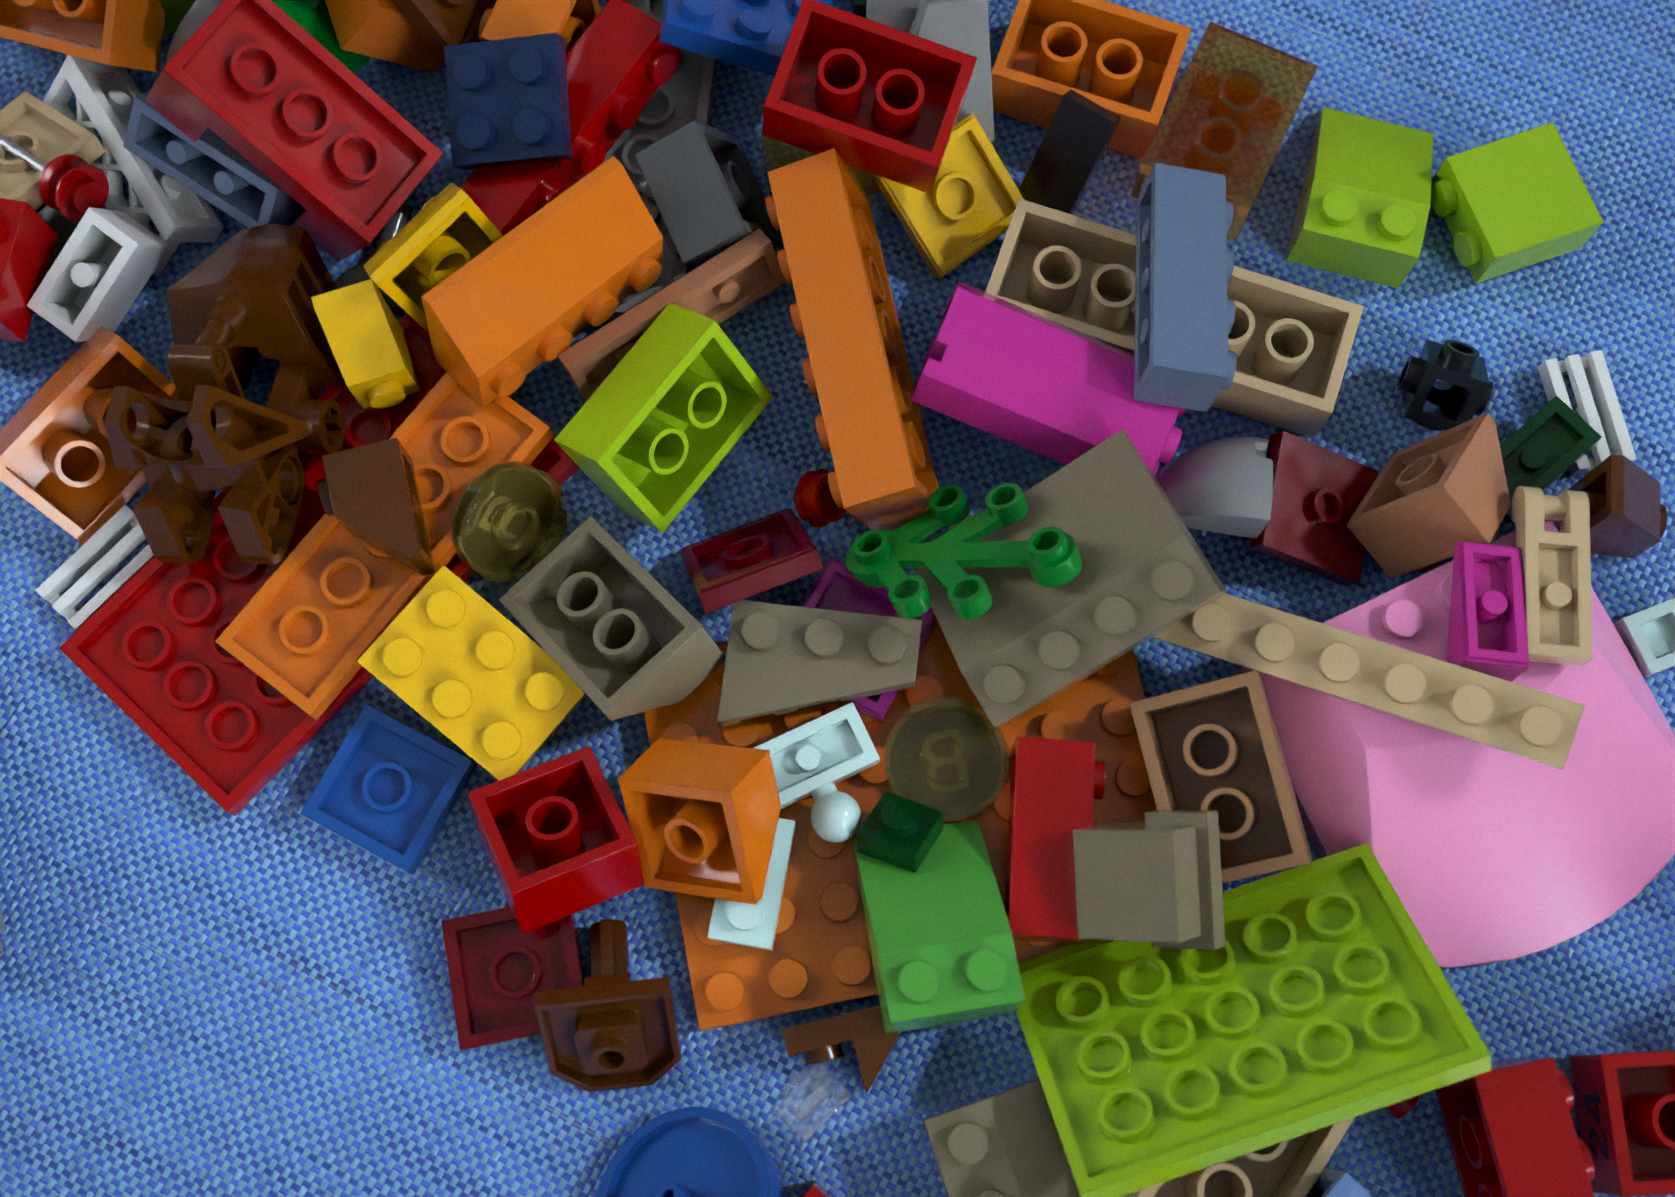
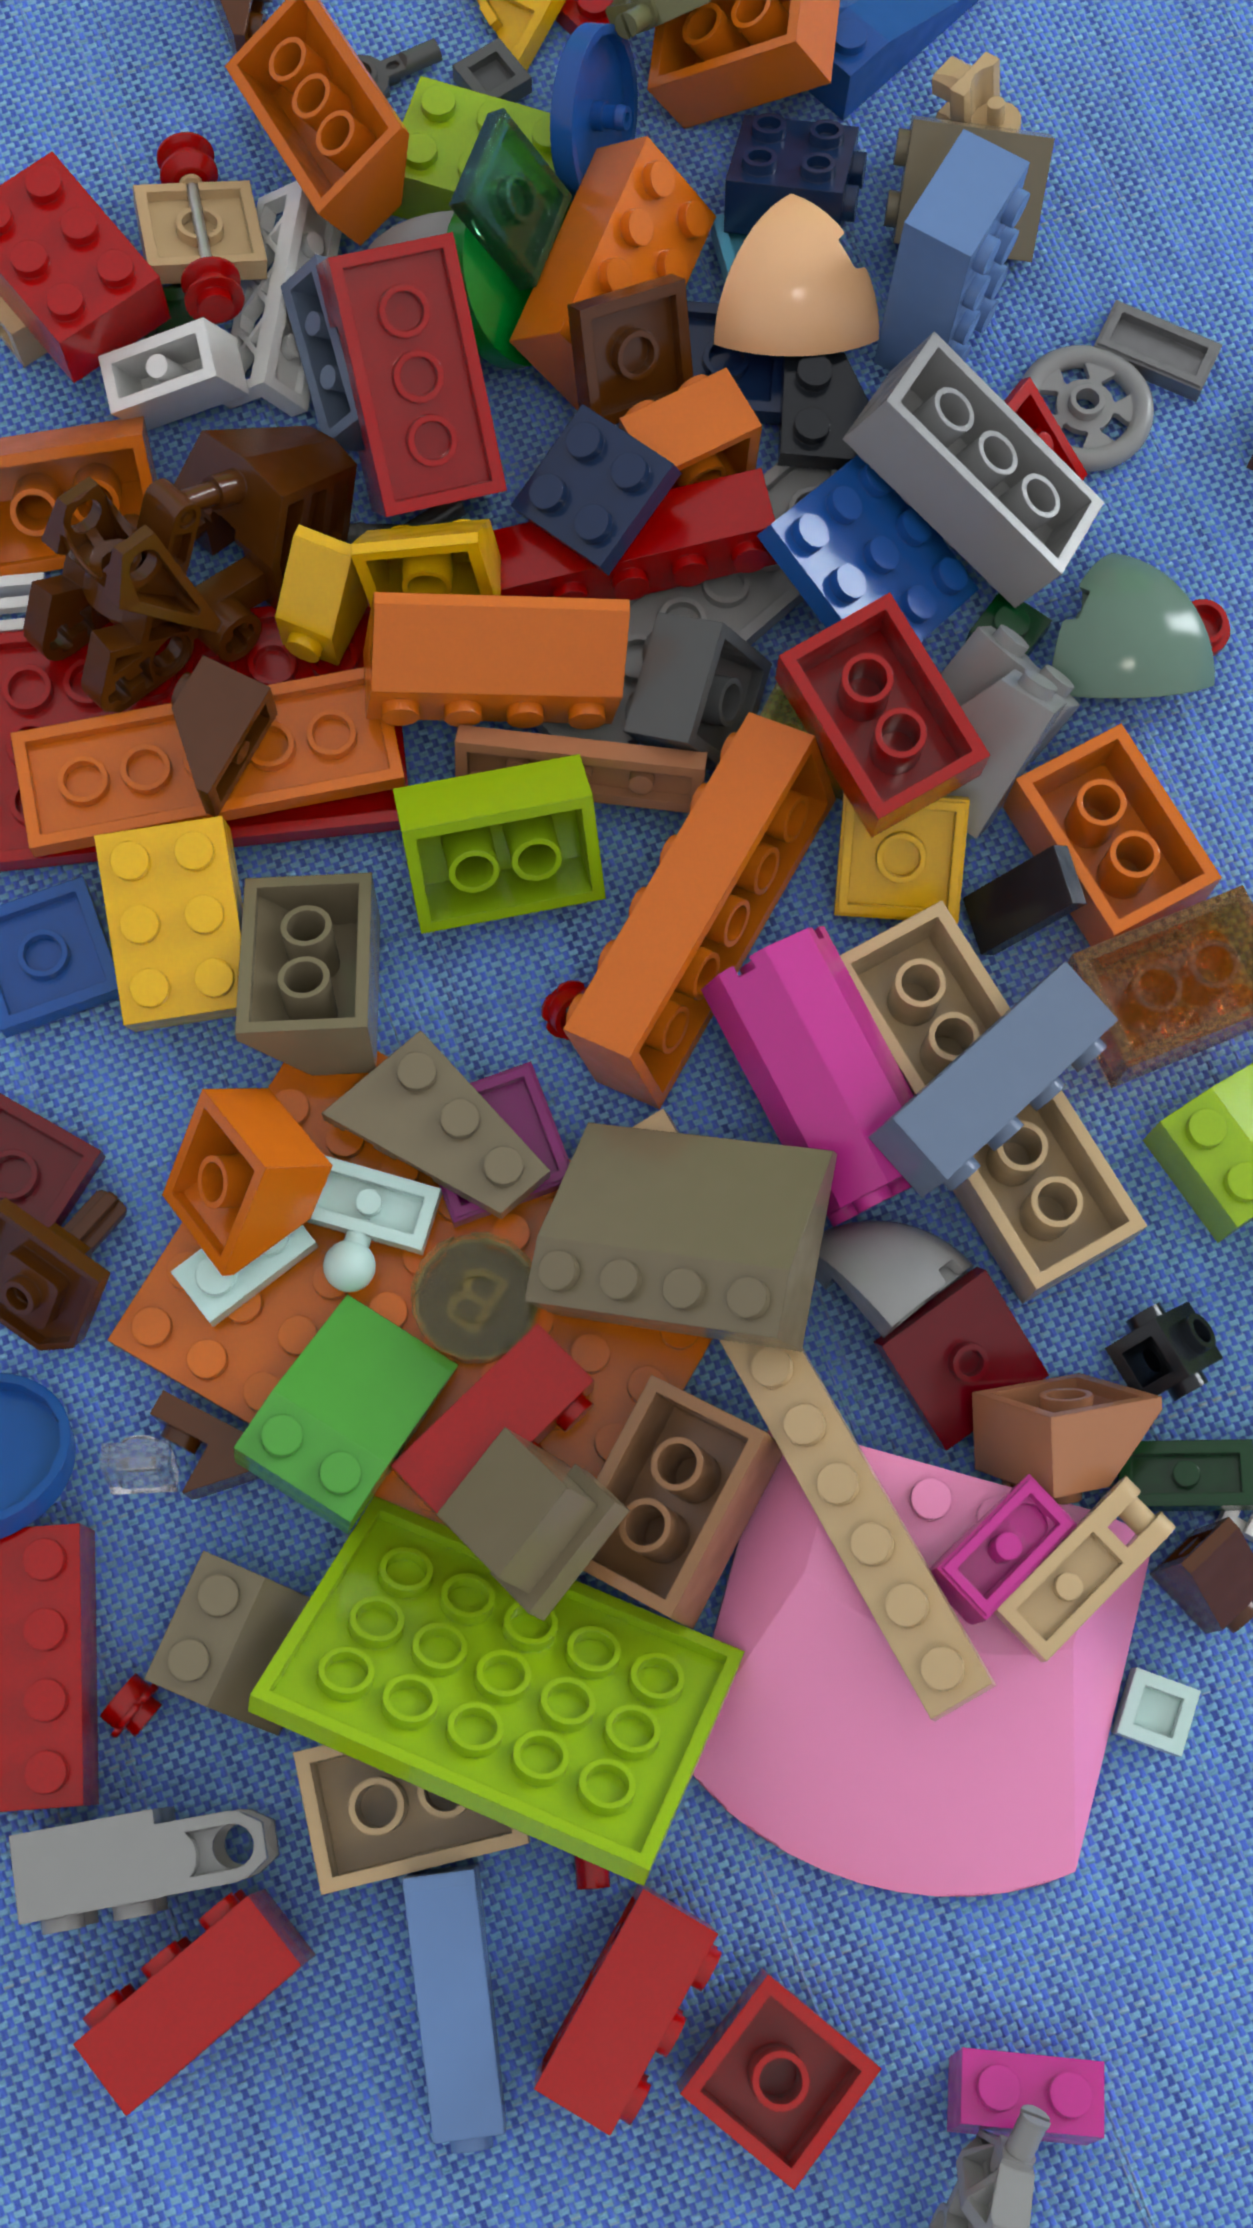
camera: 35 degrees right, 0 degrees up
(508, 520) = (310, 824): clear yellow tile -> none
(556, 839) = (124, 1098): red brick -> none
(750, 559) = (466, 1011): dark red plate -> none
(882, 555) = (568, 1094): green plant -> none
(900, 831) = (385, 1319): dark green plate -> none

